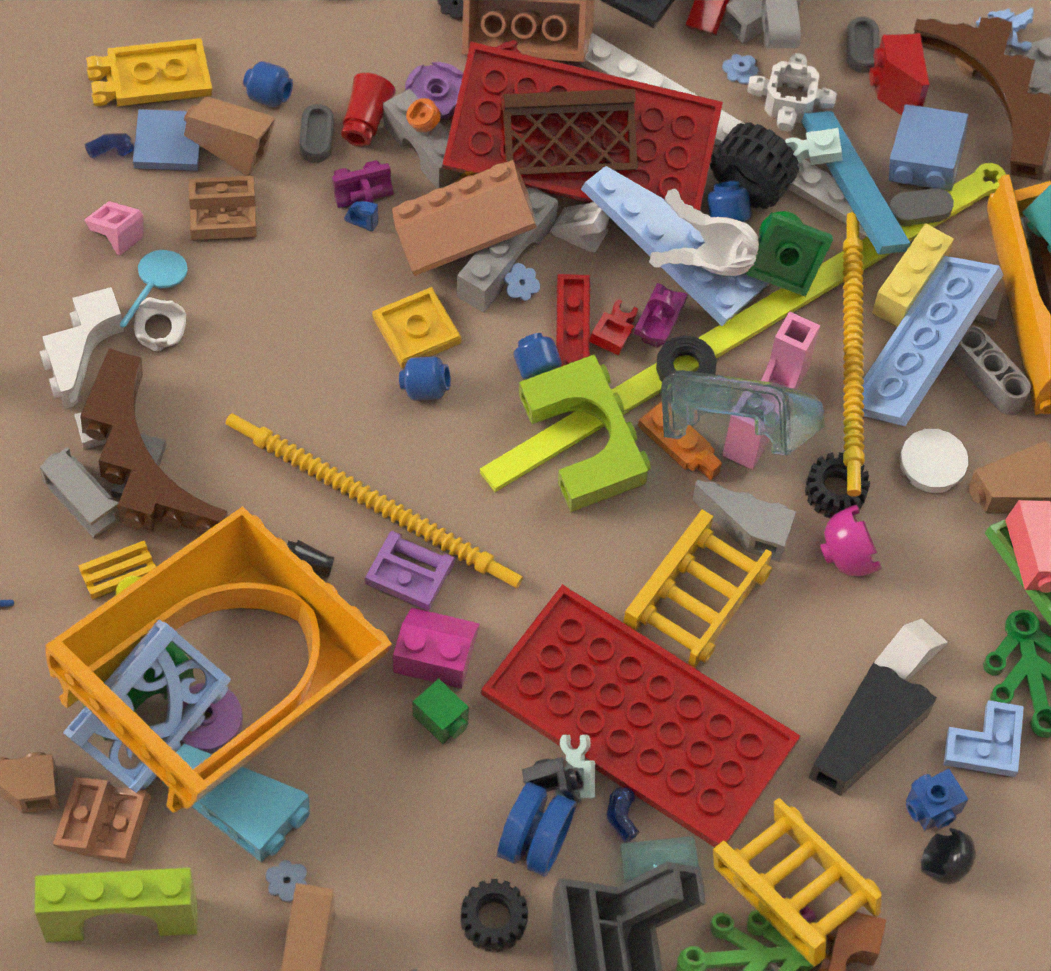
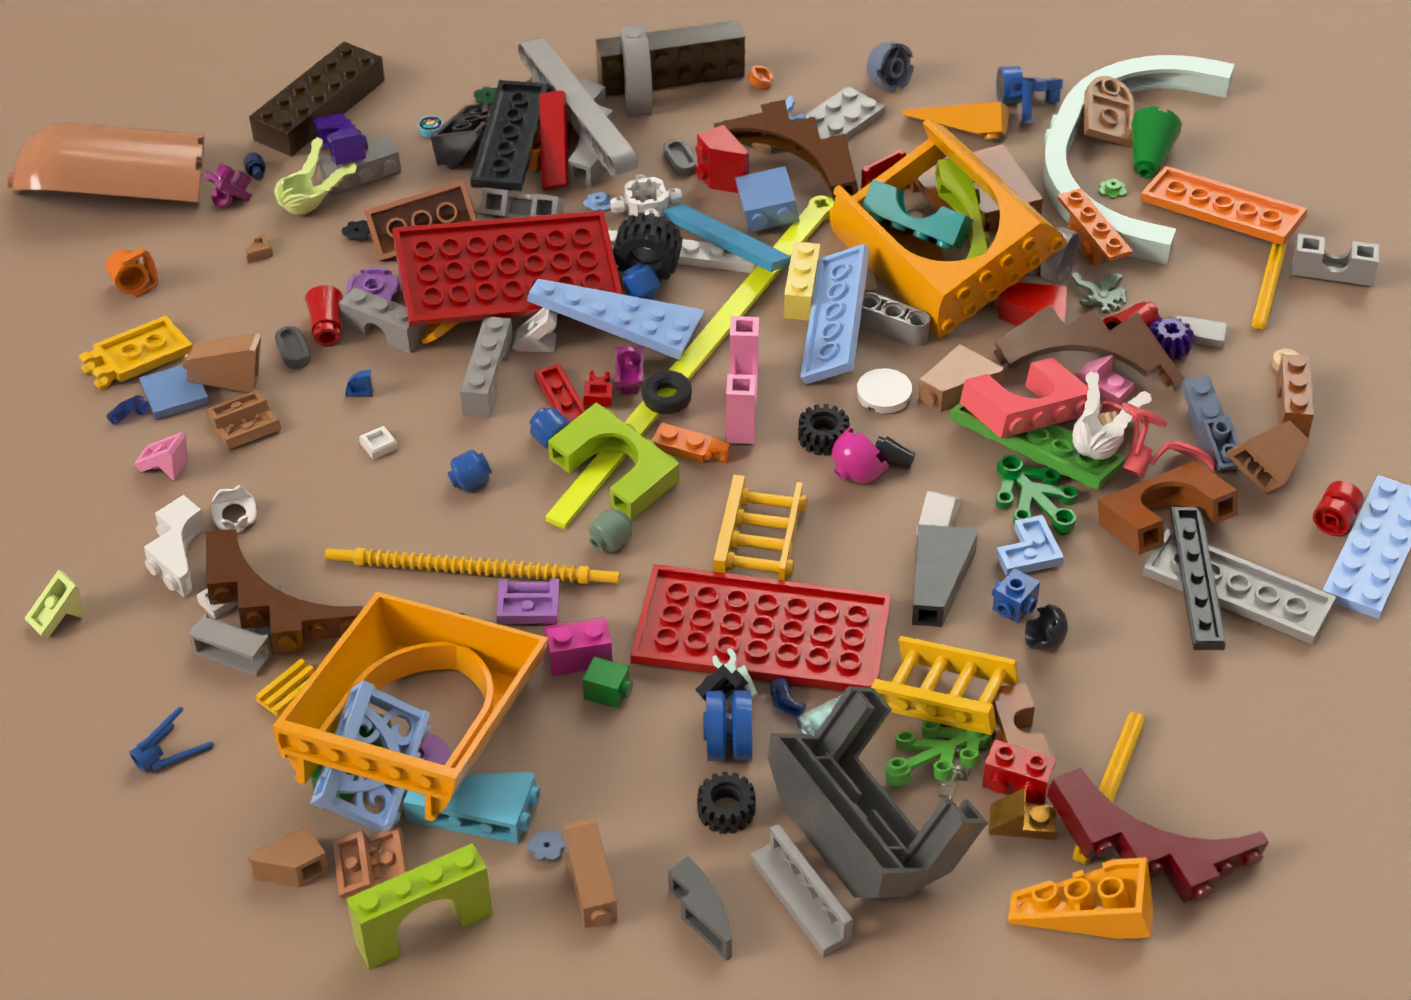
camera: 20 degrees left, 15 degrees down
(157, 270) = (214, 477): medium azure piece -> none
(268, 84) = (237, 322): blue head -> none
(349, 296) = (378, 442): none -> white tile
(362, 184) = (347, 364): magenta hips -> none
(416, 326) = (441, 442): yellow tile -> none
(423, 115) = (377, 295): orange tile -> none
(464, 217) = (444, 351): nougat slope -> none
(529, 286) = (509, 386): light blue plant -> none
(536, 521) = (610, 531): none -> sand green head
(569, 103) = (490, 242): reddish brown fence -> none
(639, 40) = (512, 205): none -> light grey arch
(728, 245) = (659, 298): white hair -> none
(747, 519) = (768, 472): light grey slope -> none
(779, 411) = (691, 394): clear light blue windscreen -> none
(789, 252) = (704, 290): green plant -> none
(820, 147) = (691, 221): light aqua plate -> none
(853, 357) = (789, 341): yellow hose -> none
(898, 549) = (894, 452): none -> black cone
(921, 206) = (784, 235): dark grey tile -> none

